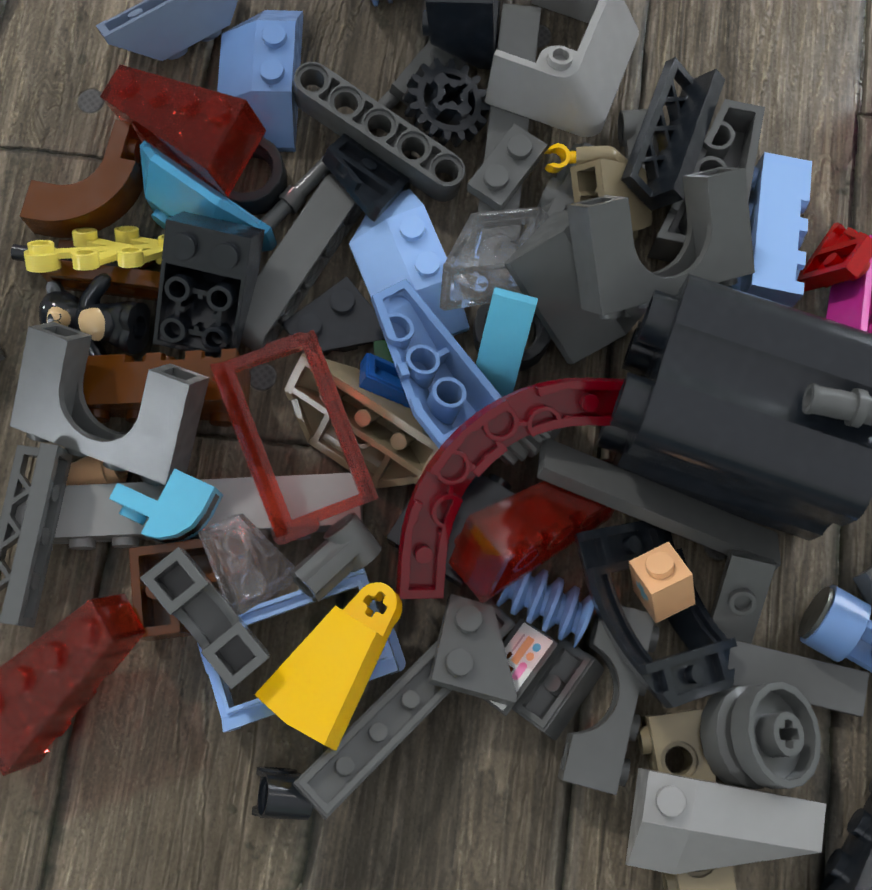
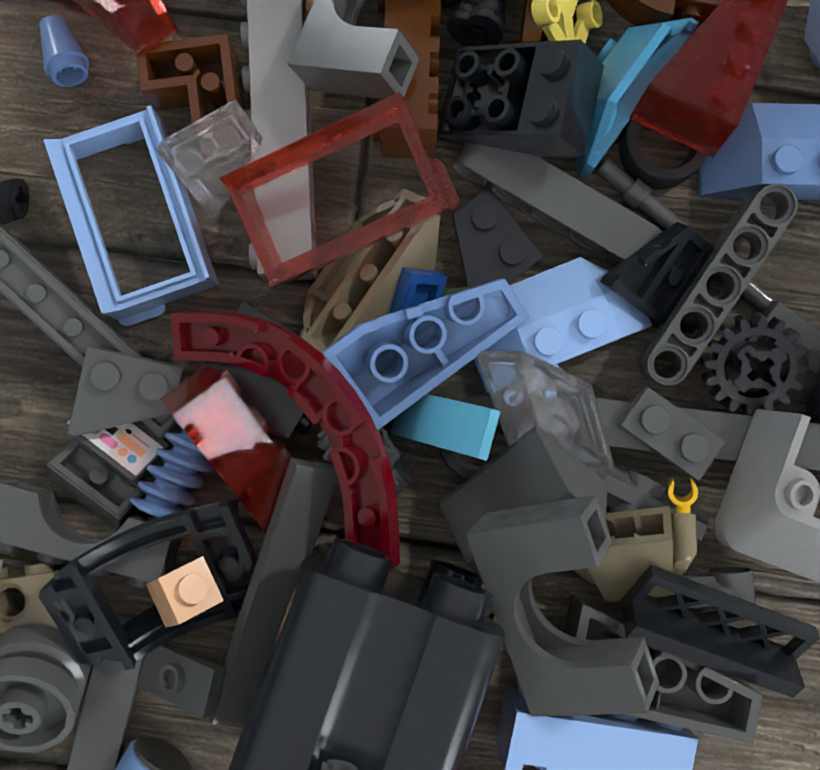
camera: 90 degrees right, 10 degrees up
(128, 729) = (62, 53): none -> medium blue cone
(178, 514) = (261, 77): medium azure brick -> none
(207, 616) = (123, 136): dark grey arch -> none
(331, 667) = (92, 240): yellow piece -> none
(345, 550) = (226, 256): dark grey piece -> none

